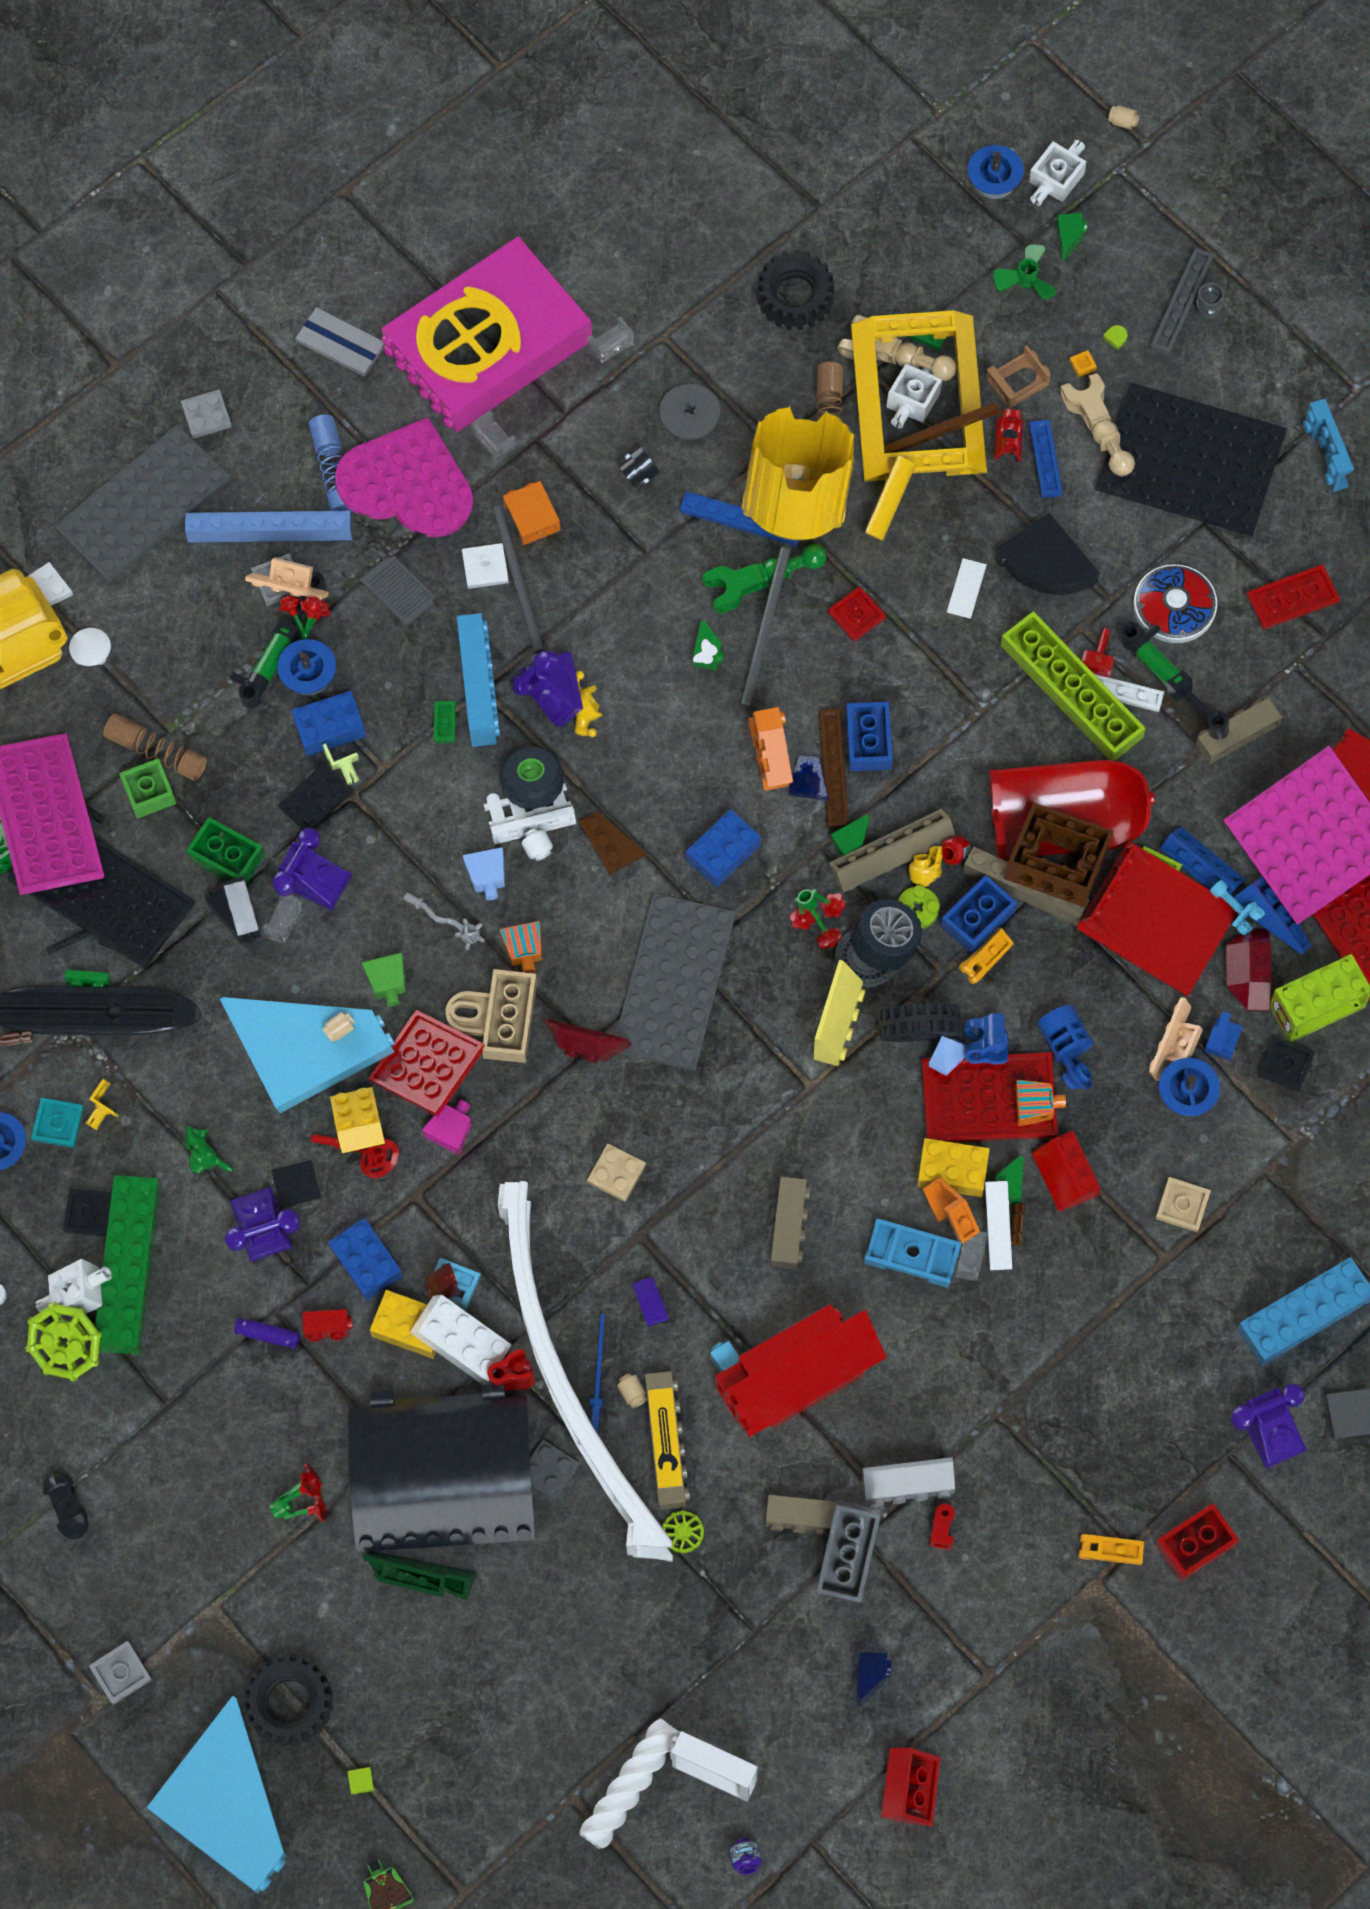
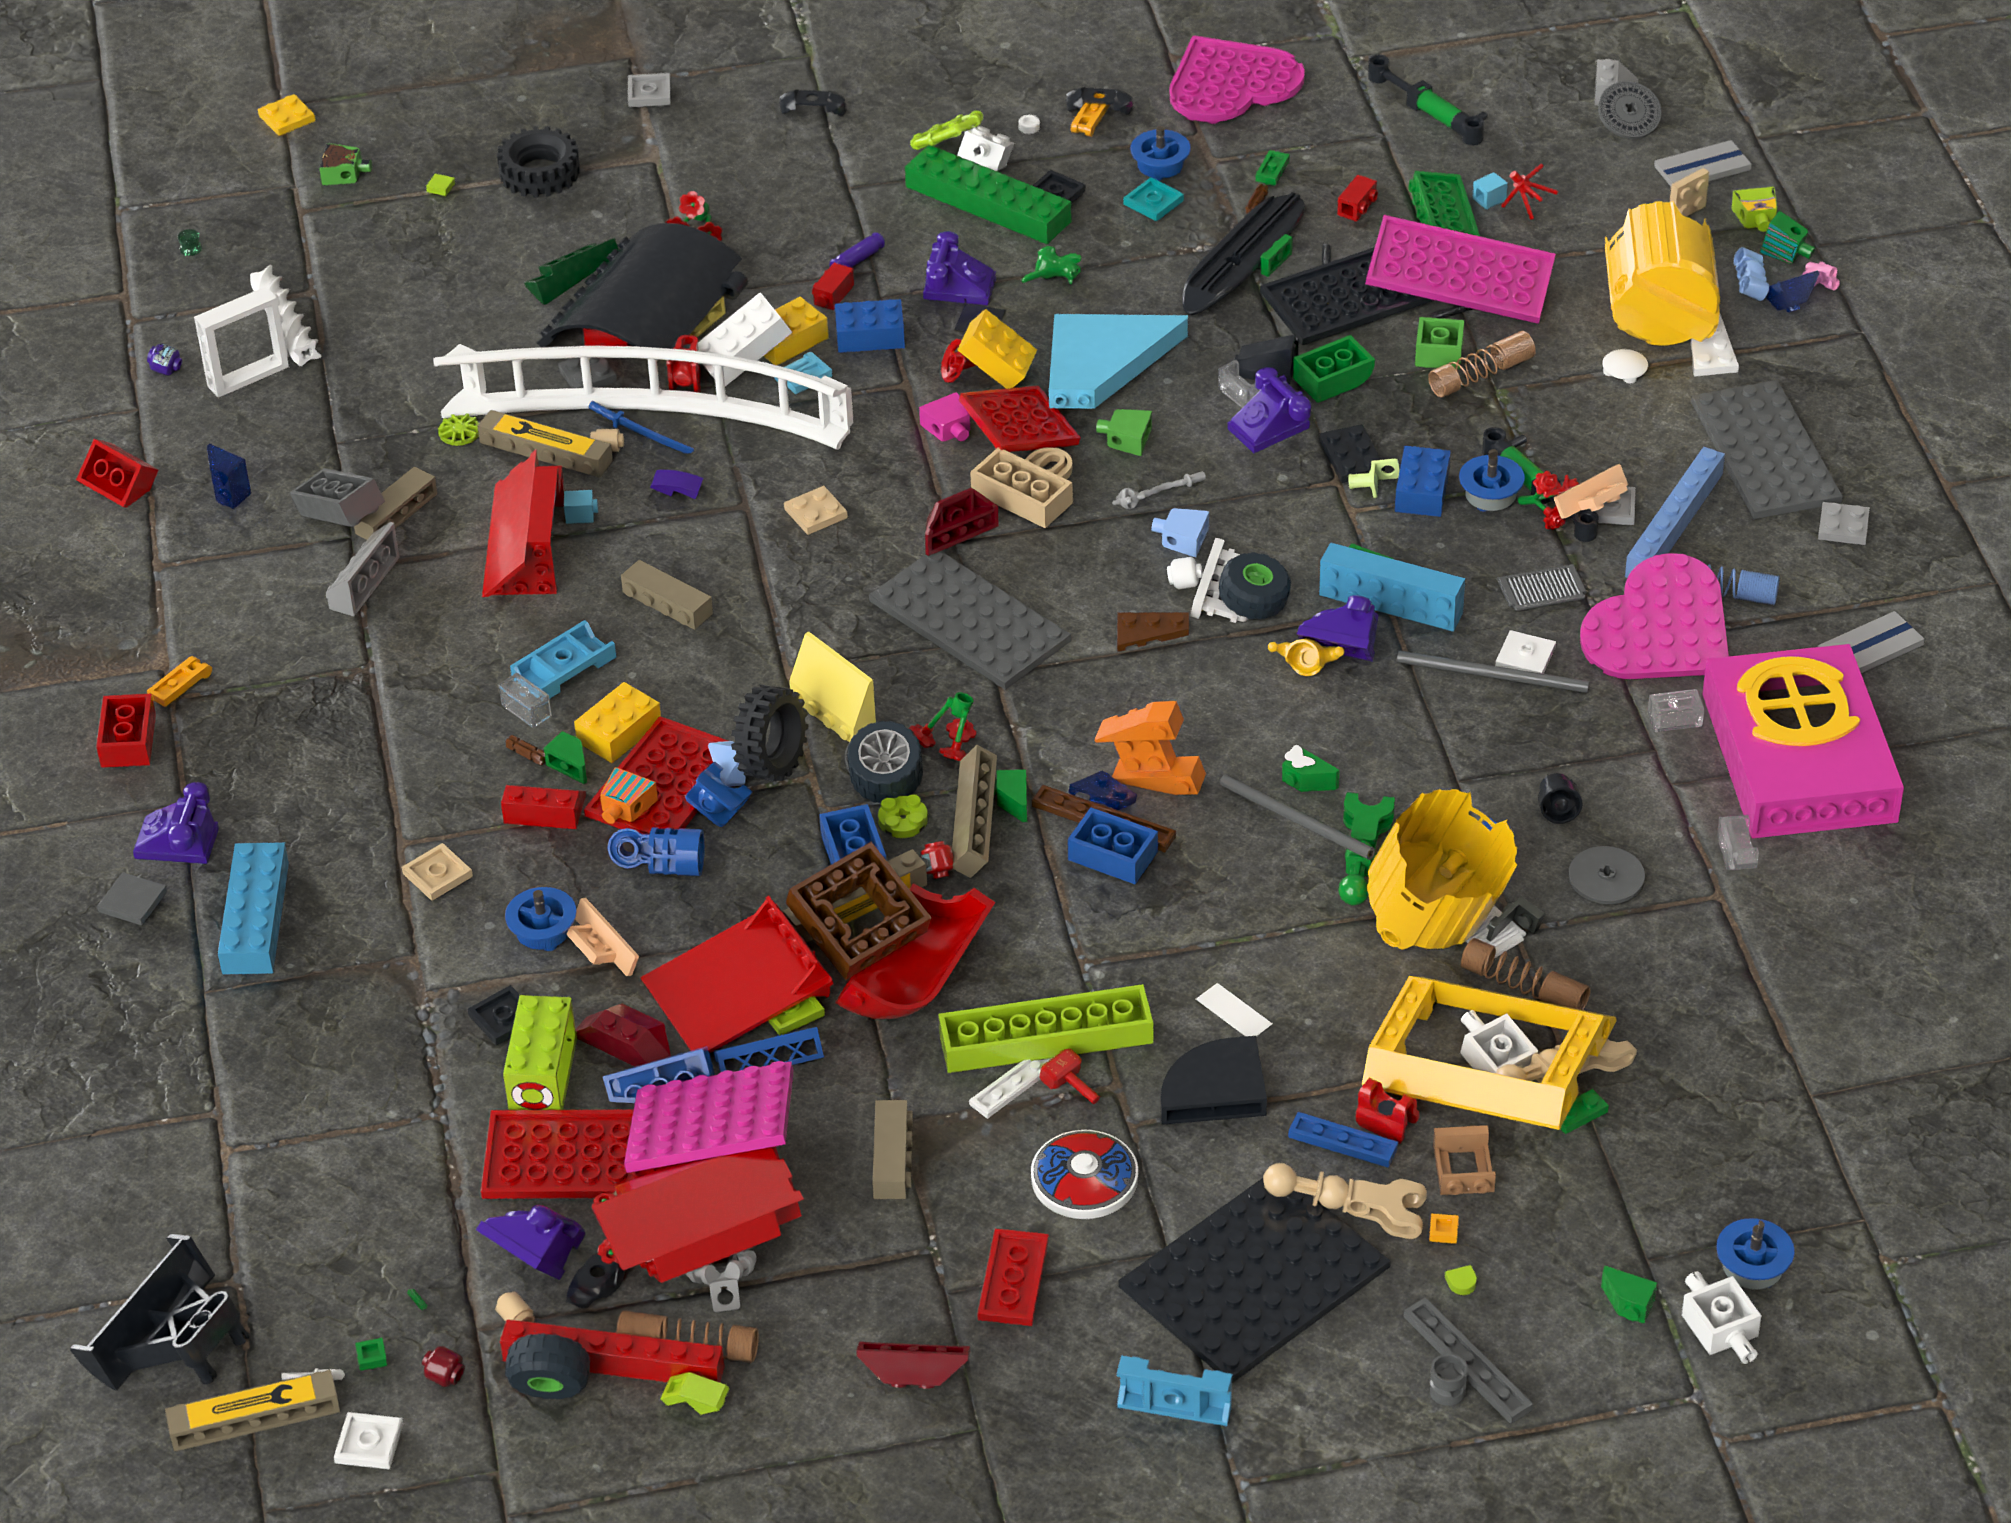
camera: 120 degrees right, 25 degrees down
(100, 1111) = (1147, 226): yellow bracket -> none
(222, 1802) = (487, 105): medium azure slope -> none
(338, 1026) = (1092, 358): tan brick -> none
(442, 1283) = (799, 350): clear red slope -> none
(523, 945) = (1087, 527): orange torso -> none
(532, 512) = (1563, 698): orange panel -> none
(723, 848) = (1076, 695): blue brick -> none
(791, 268) = (1710, 990): black tyre -> none
(856, 614) = (1264, 903): red plate -> none
(889, 498) = (1374, 962): yellow brick -> none
(926, 867) = (935, 827): yellow head -> none
(942, 1520) = (305, 580): red leg -> none
(943, 428) = (1427, 1036): reddish brown tile -> none
(948, 1203) = (570, 688): orange panel -> none
(986, 955) = (808, 839): light orange plate -> none
(998, 1225) = (534, 725): white tile -> none
(1007, 278) = (1594, 1231): green piece -> none
(1123, 117) = (1767, 1425): tan brick -> none
(1178, 682) = (980, 1109): black piece -> none
(1223, 1037) = (572, 977): blue piece -> none
(1252, 909) = (722, 1038): medium azure bar -> none

